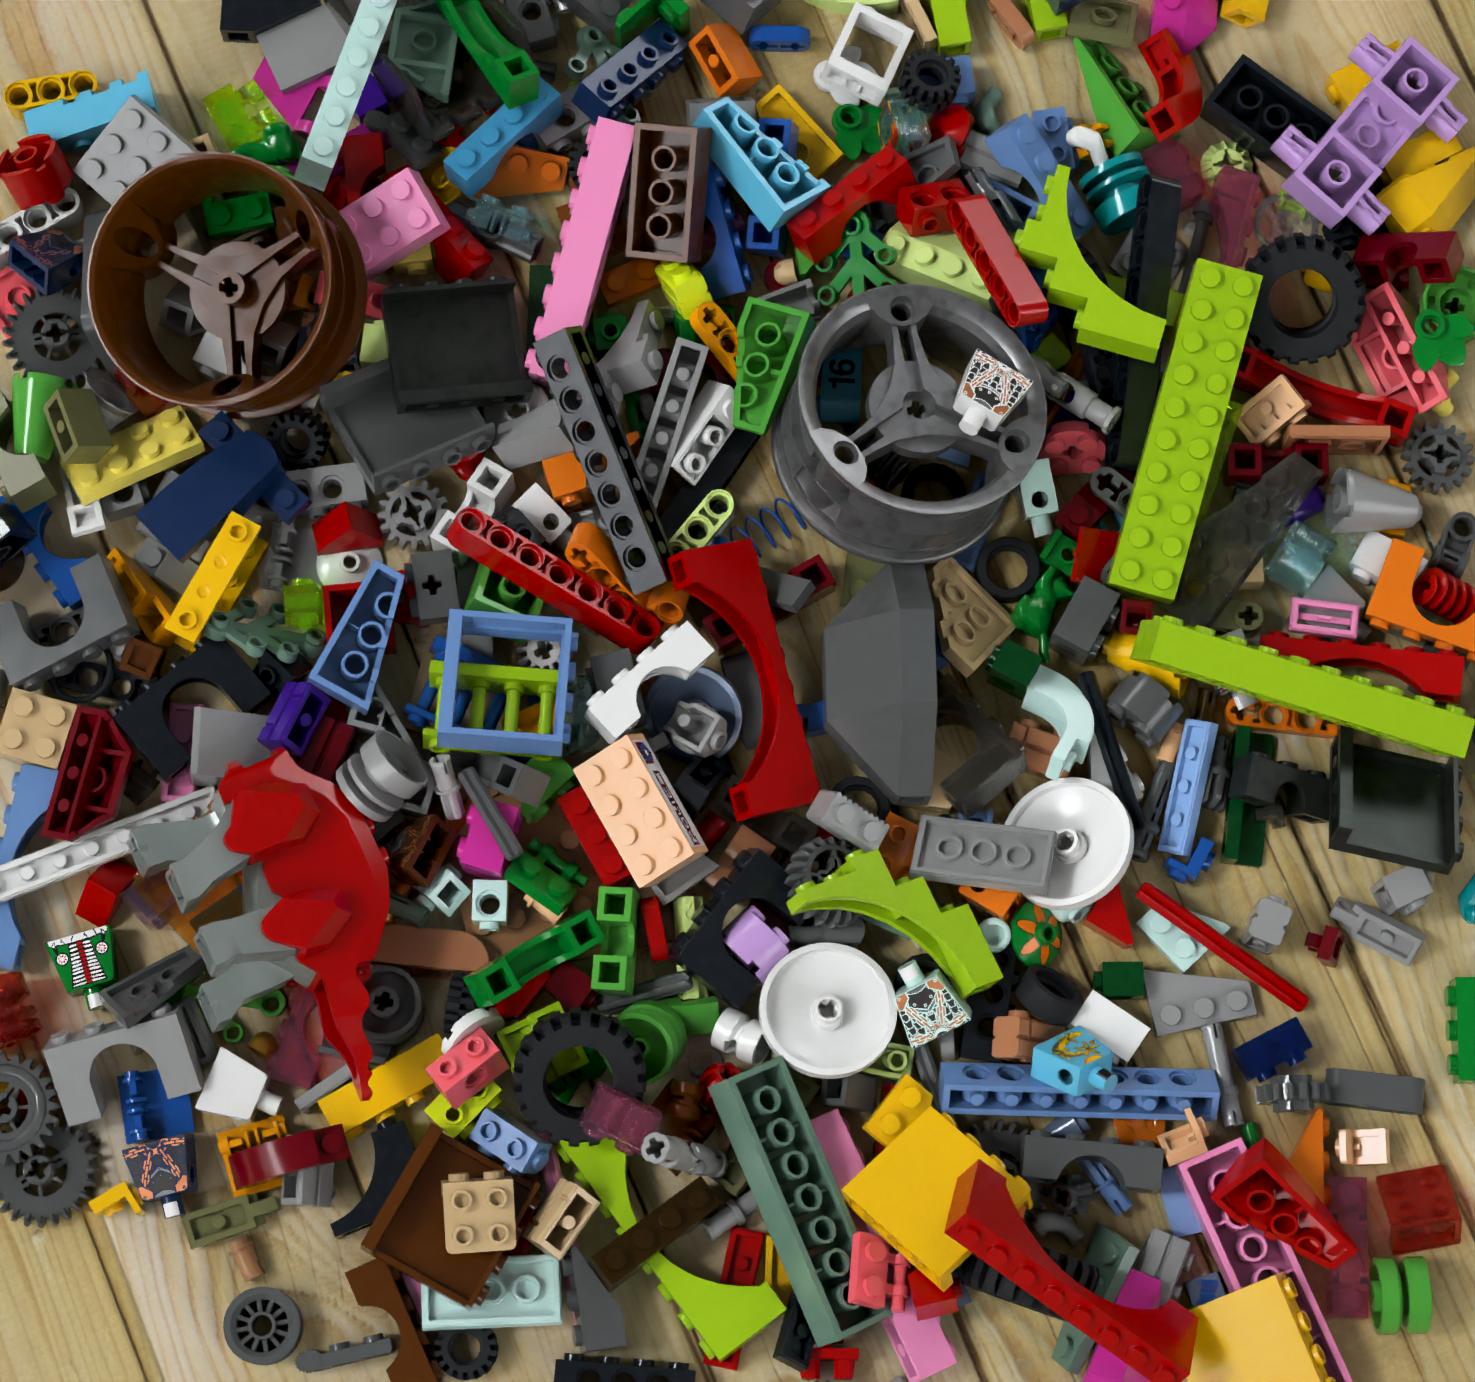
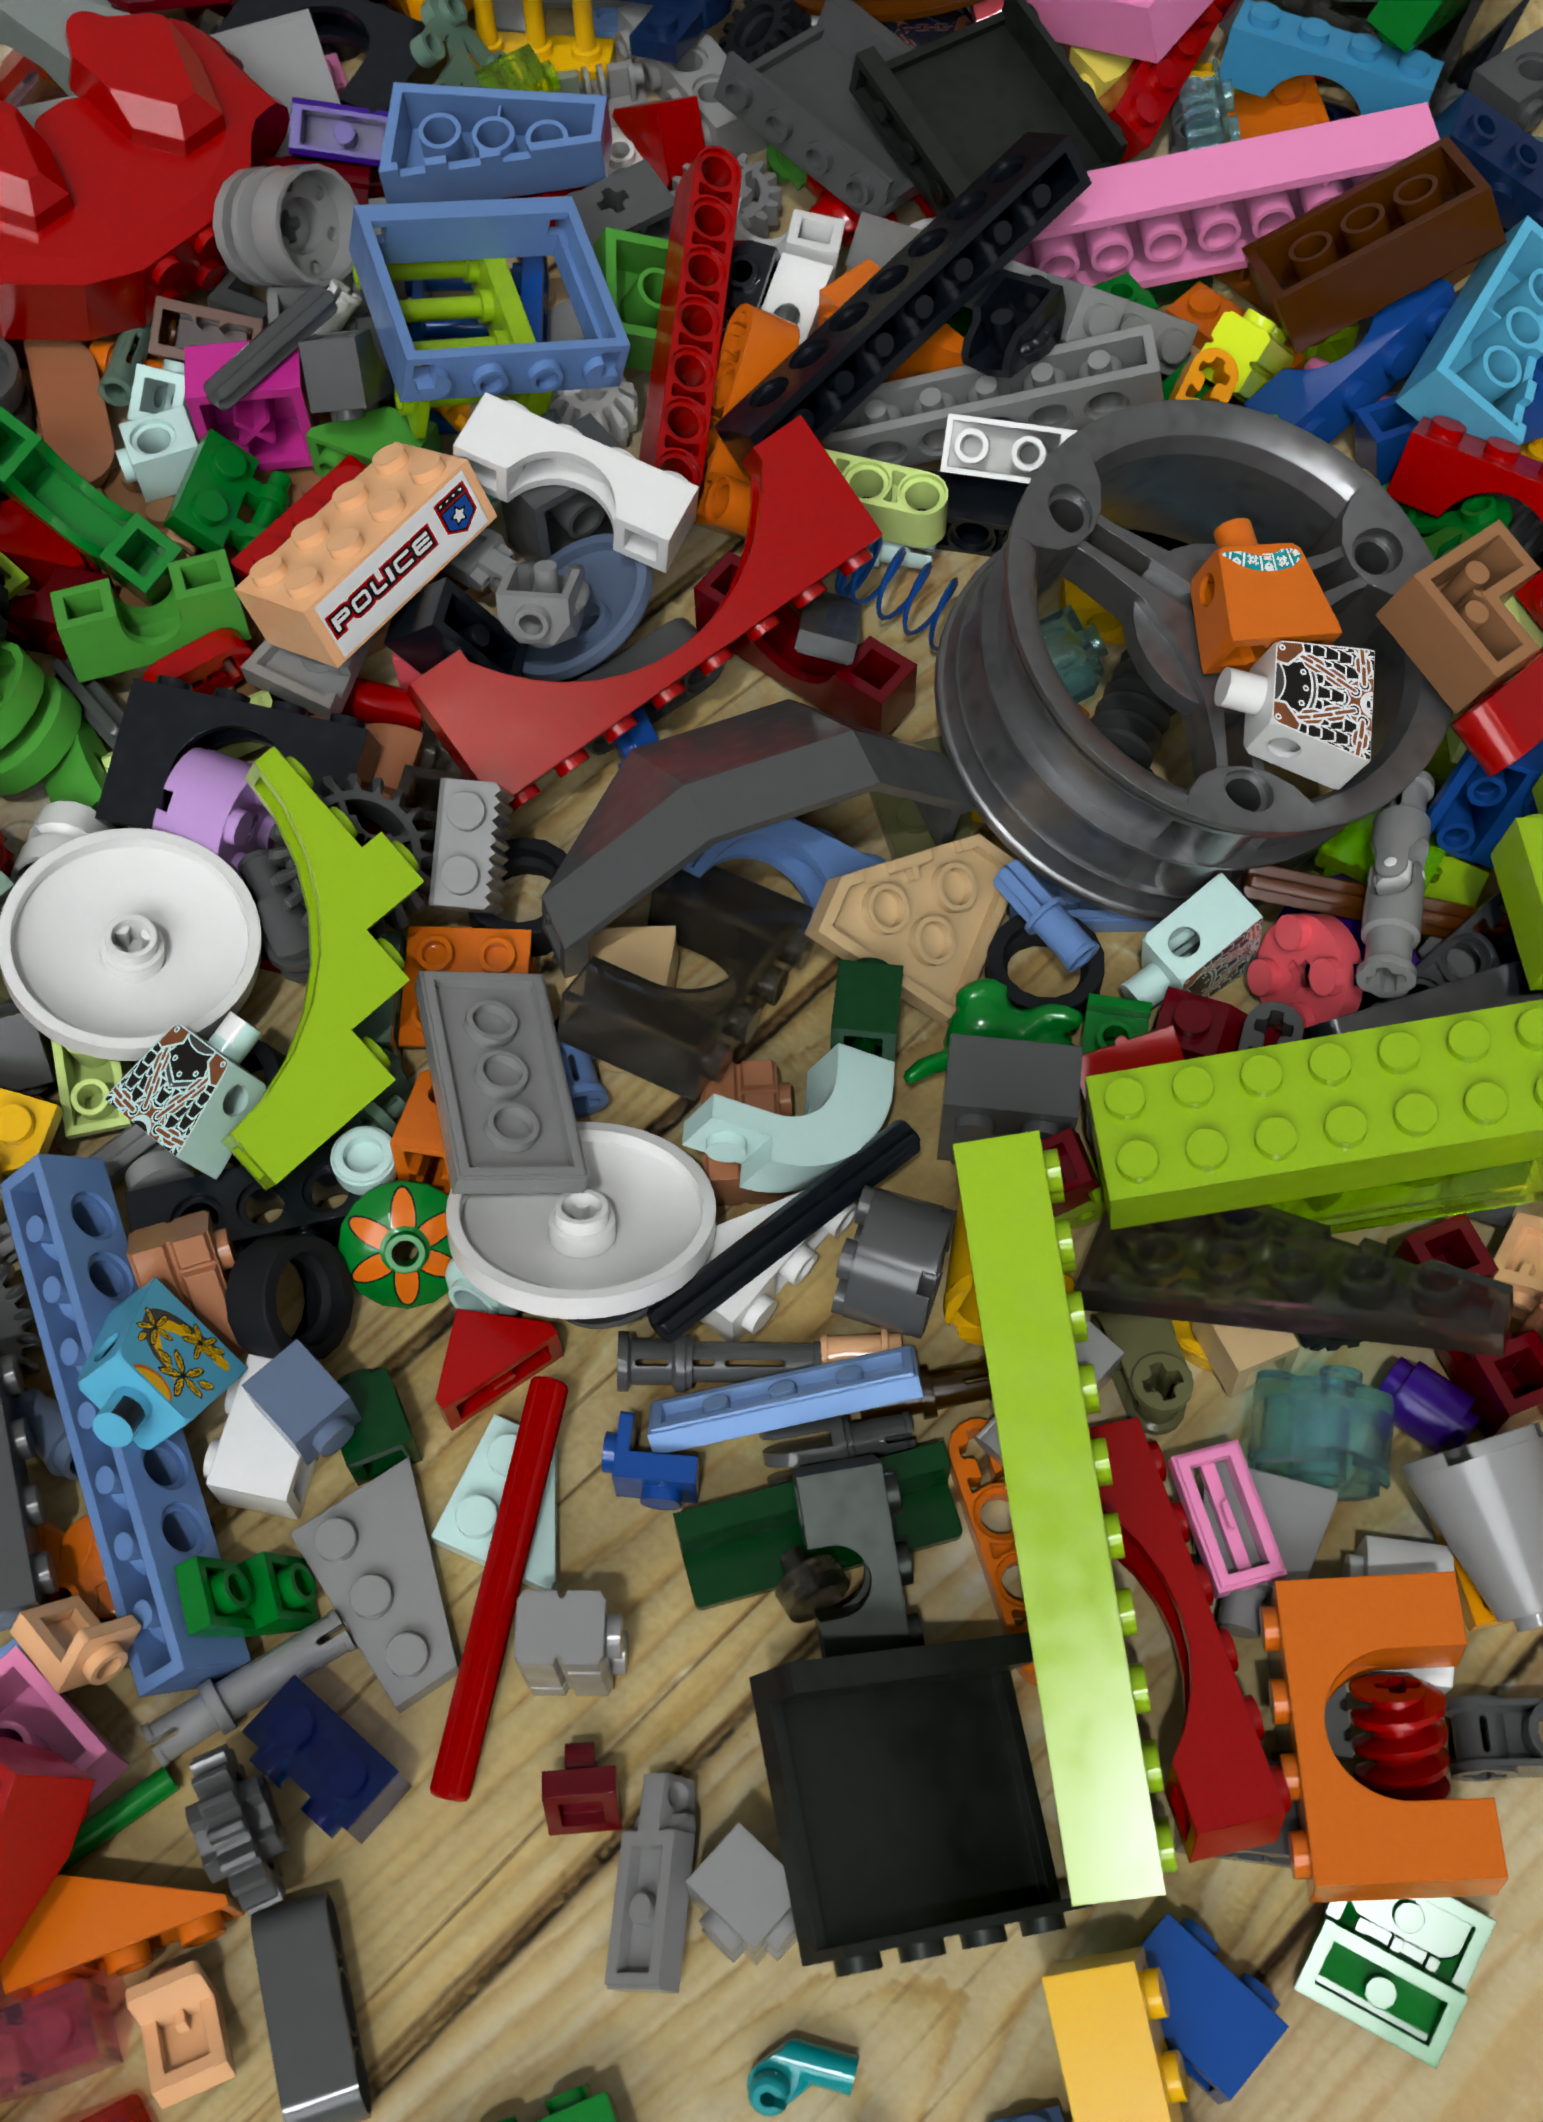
camera: 70 degrees right, 15 degrees down
(645, 409) = (1014, 324): none -> black hand
(927, 389) = (1255, 597): none -> orange torso
(965, 299) = (1456, 618): none -> medium nougat brick
(992, 557) = (1045, 915): none -> medium blue axle
(1115, 1001) = (303, 1403): none -> sand blue brick
(1186, 1059) = (247, 1597): none -> green slope

